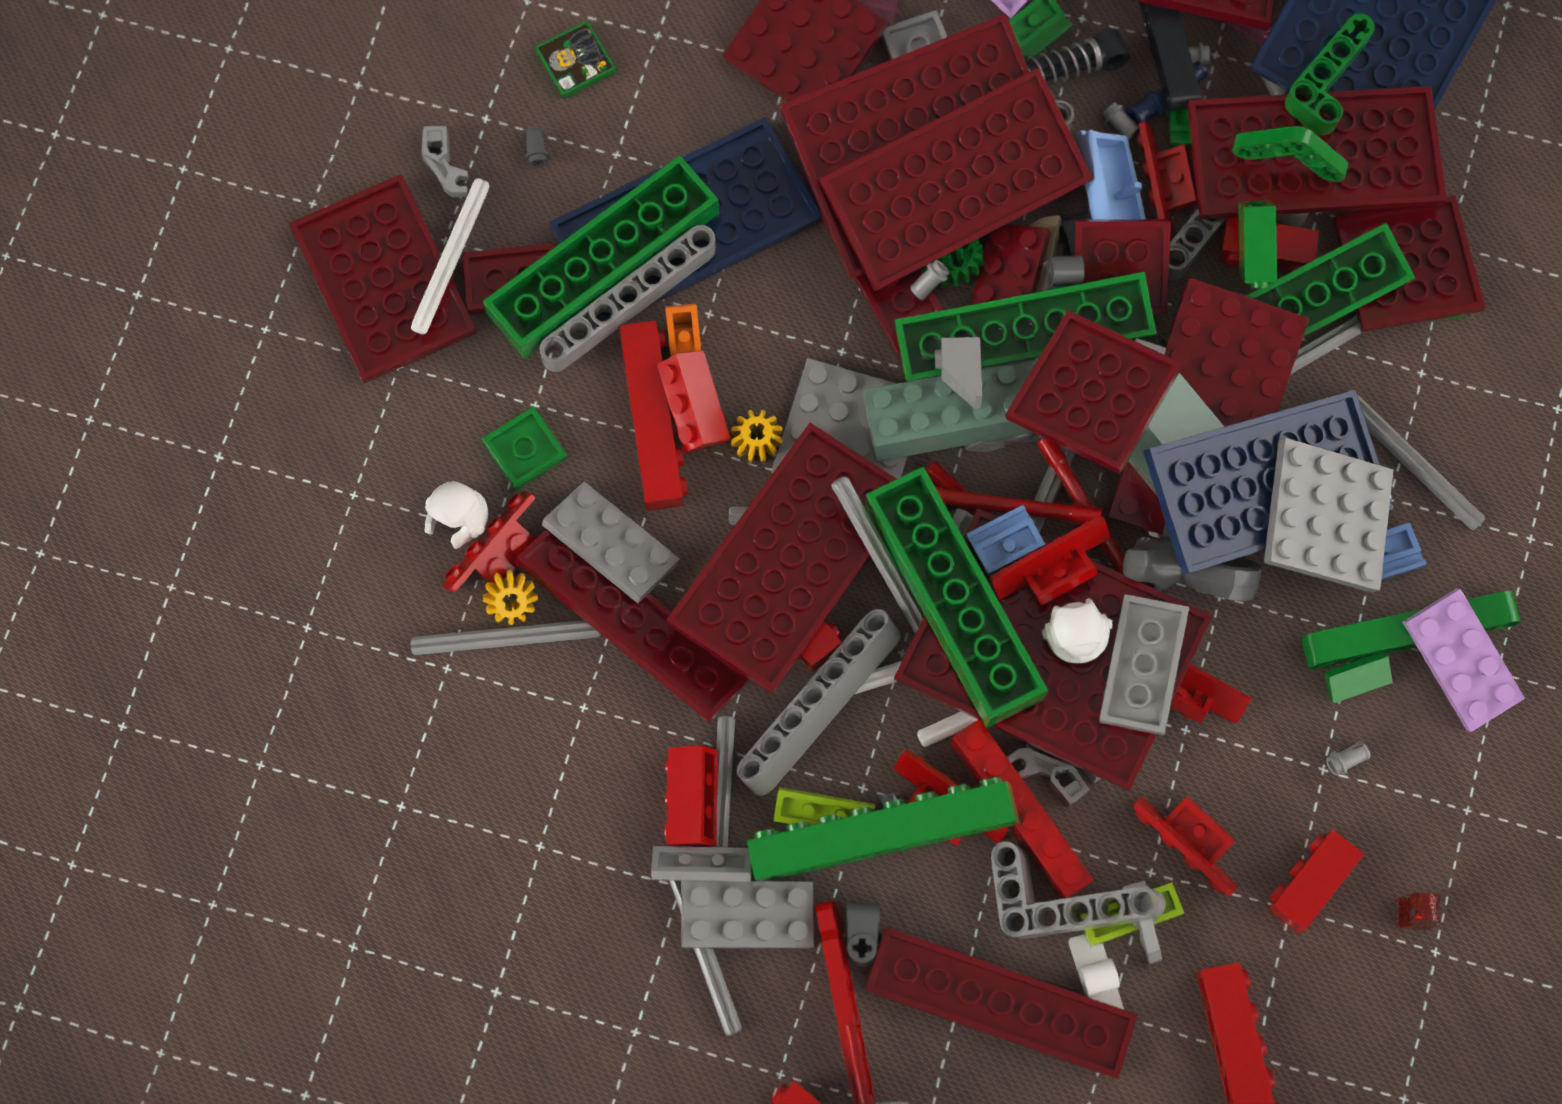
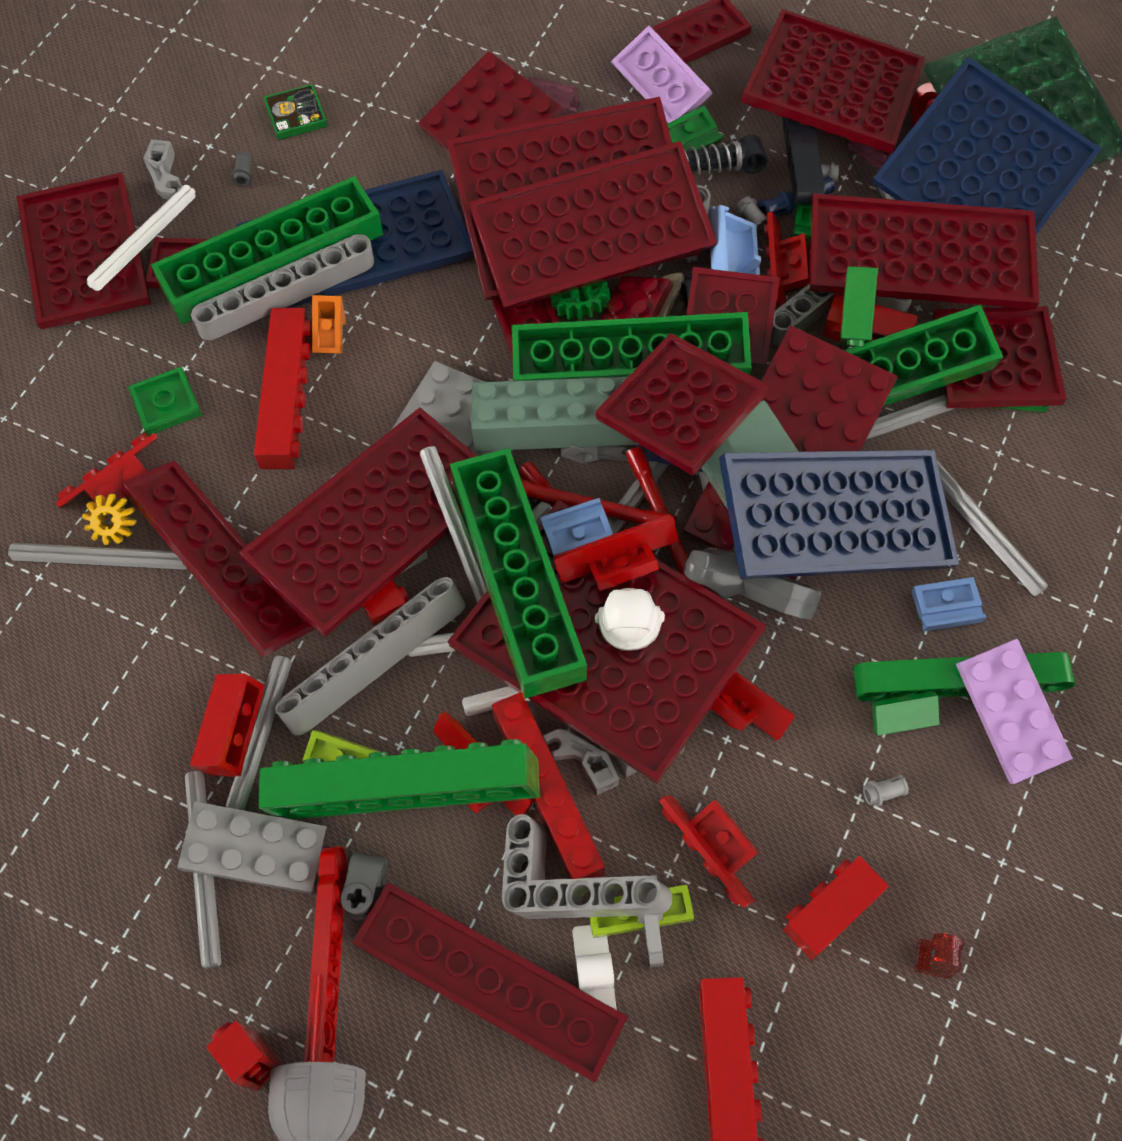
camera: 10 degrees right, 10 degrees down
(455, 507) = (86, 432): white helmet -> none
(610, 542) = (216, 487): light grey plate -> none
(693, 401) = (320, 377): brick -> none
(701, 863) = (213, 788): light grey plate -> none
(753, 424) = (372, 416): yellow gear -> none
(929, 279) = (555, 306): light grey pin -> none
(961, 367) = (563, 368): light grey slope -> none
(1064, 271) = (675, 304): dark grey piece -> none
(1144, 664) = (689, 660): light grey plate -> none
(1293, 141) = (904, 223): green beam -> none
(1328, 515) = (894, 554): light grey plate -> none
(1332, 68) = (924, 196): green beam -> none

